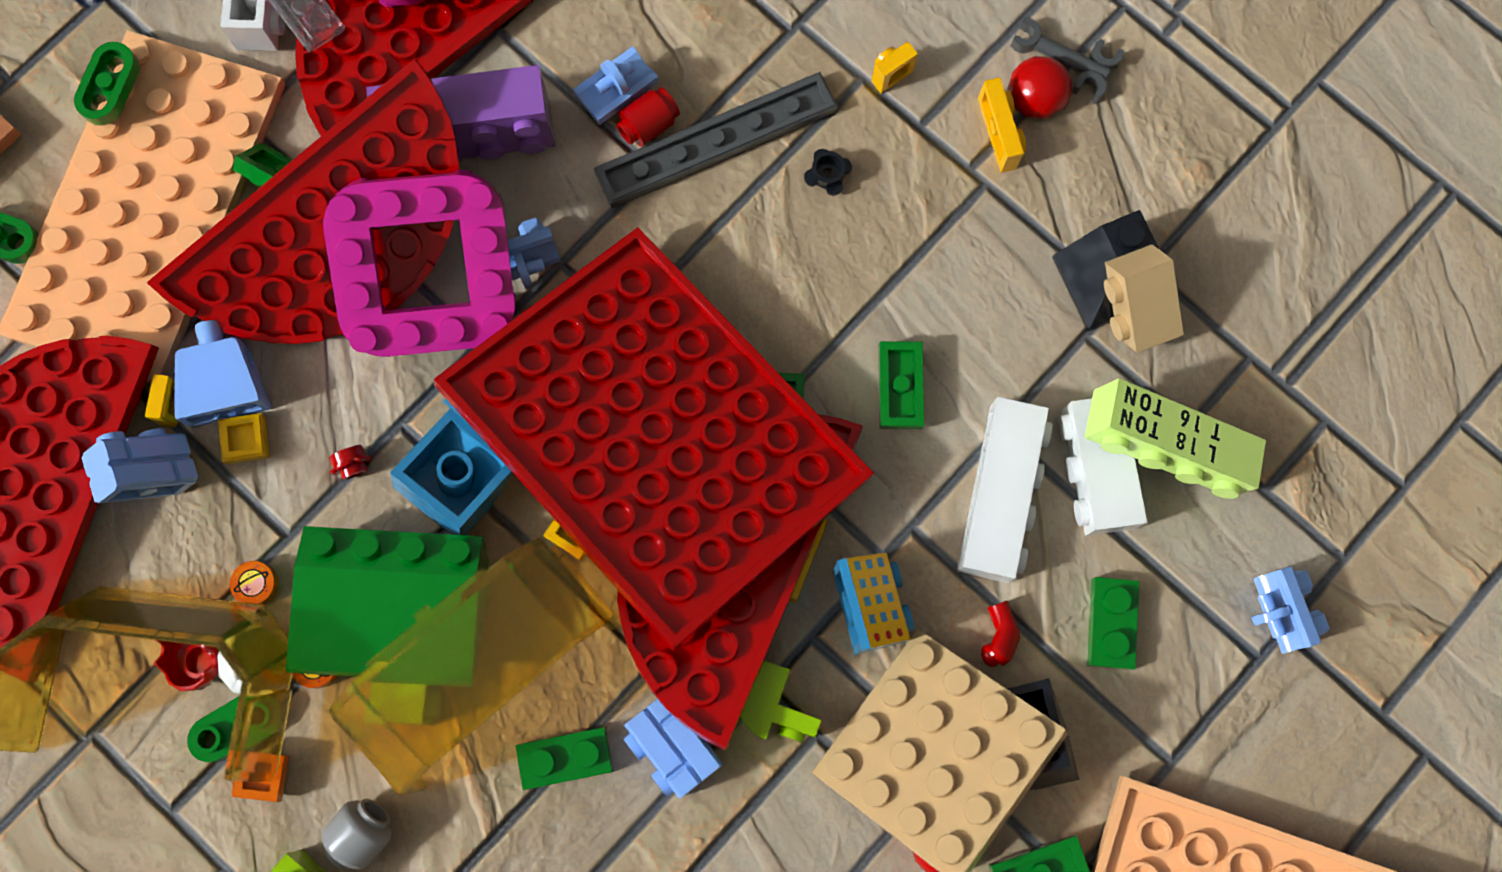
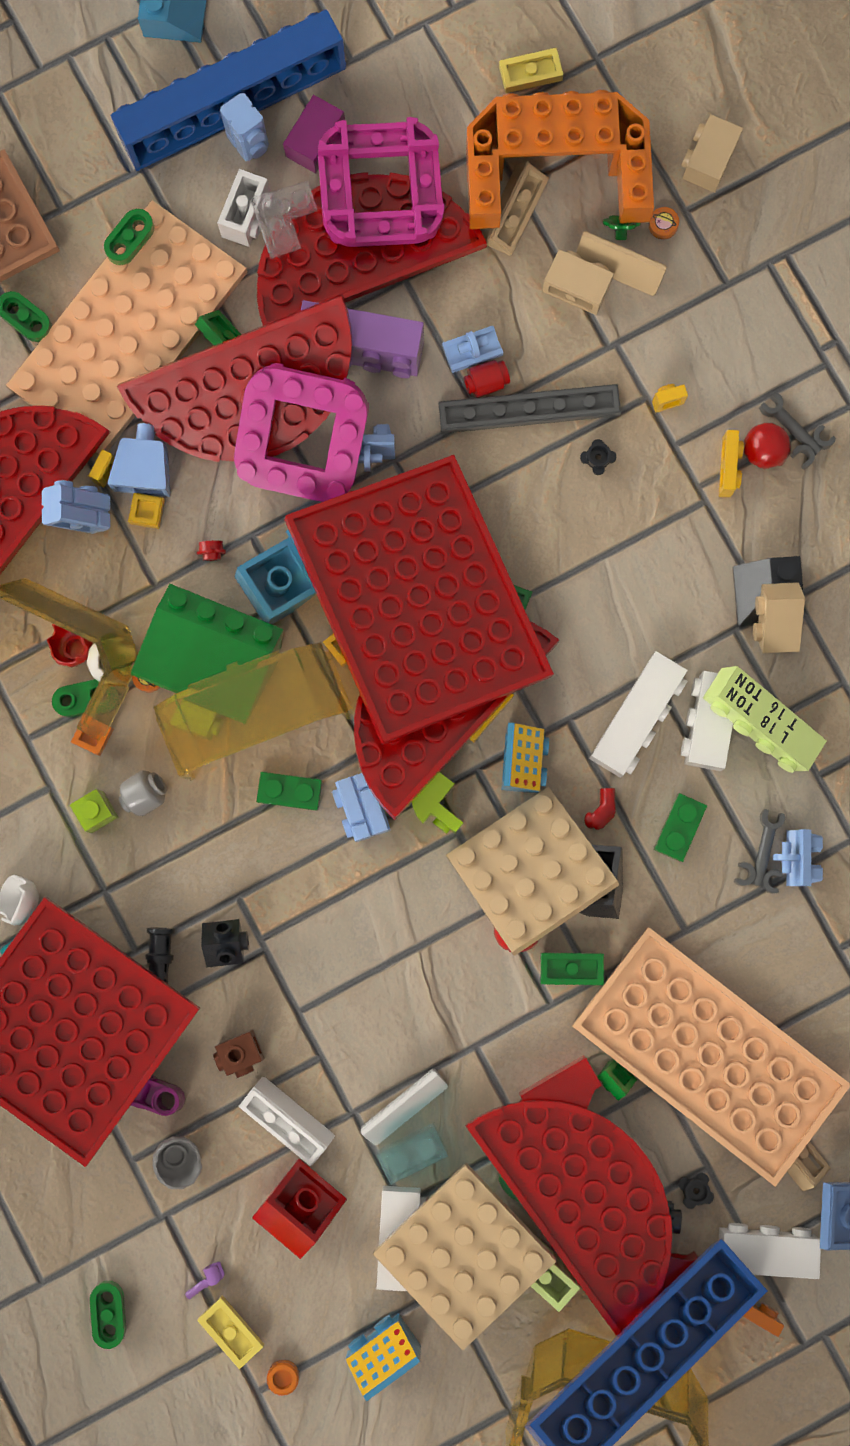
camera: 25 degrees right, 5 degrees up
(254, 583) = (124, 609): tile -> none
(900, 385) = (595, 621): green plate -> none
(1239, 651) = (758, 875): none -> dark grey bar

